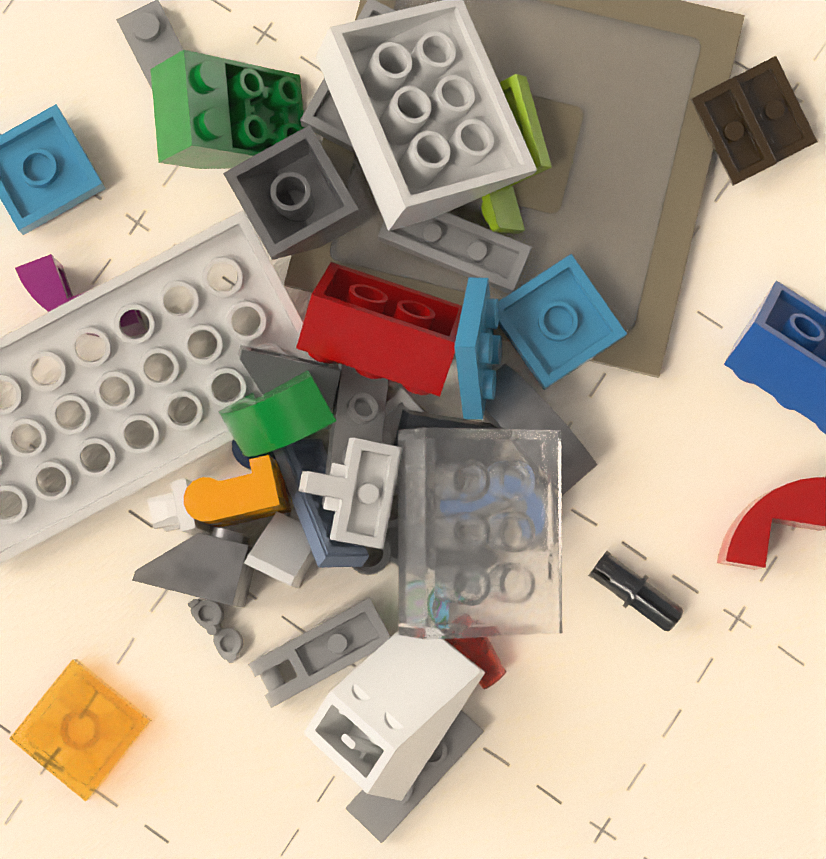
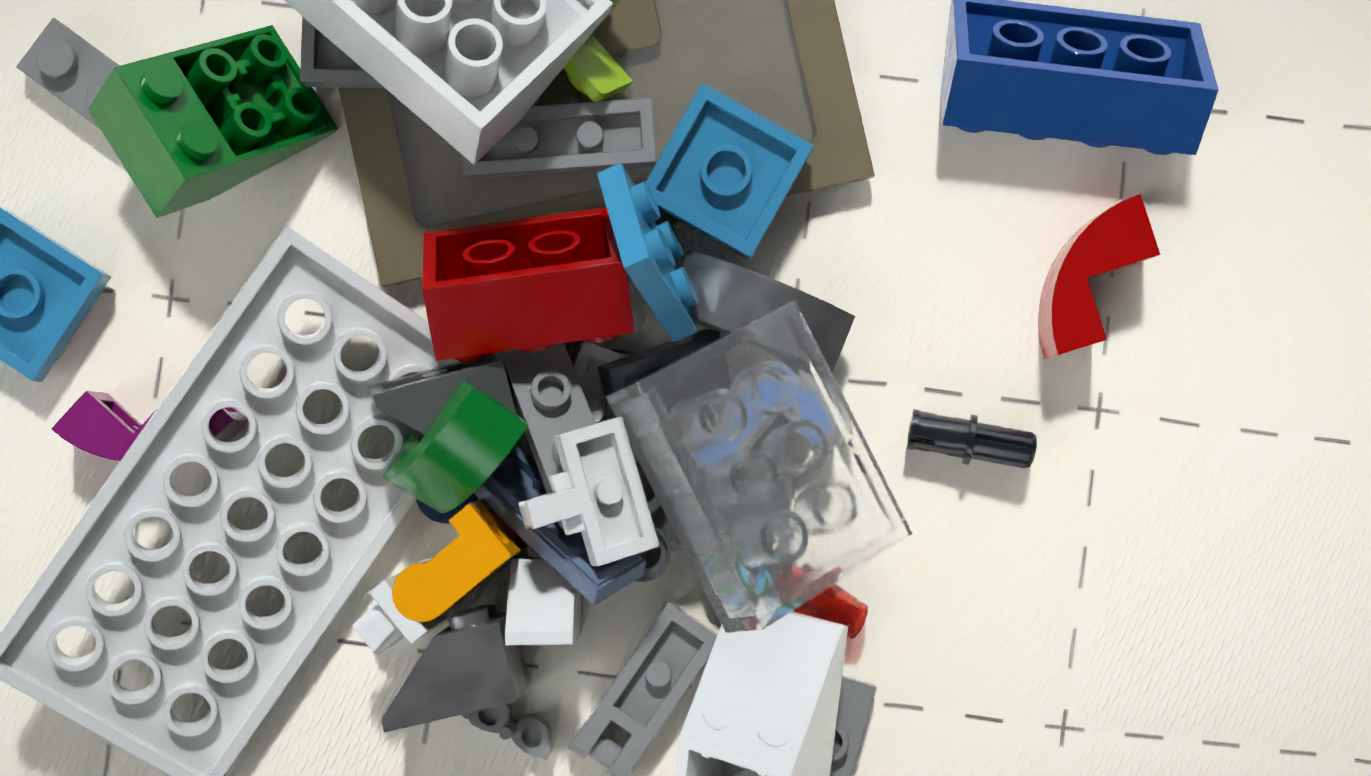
camera: 30 degrees left, 5 degrees up
(294, 196) = (338, 178): flat silver slope -> none

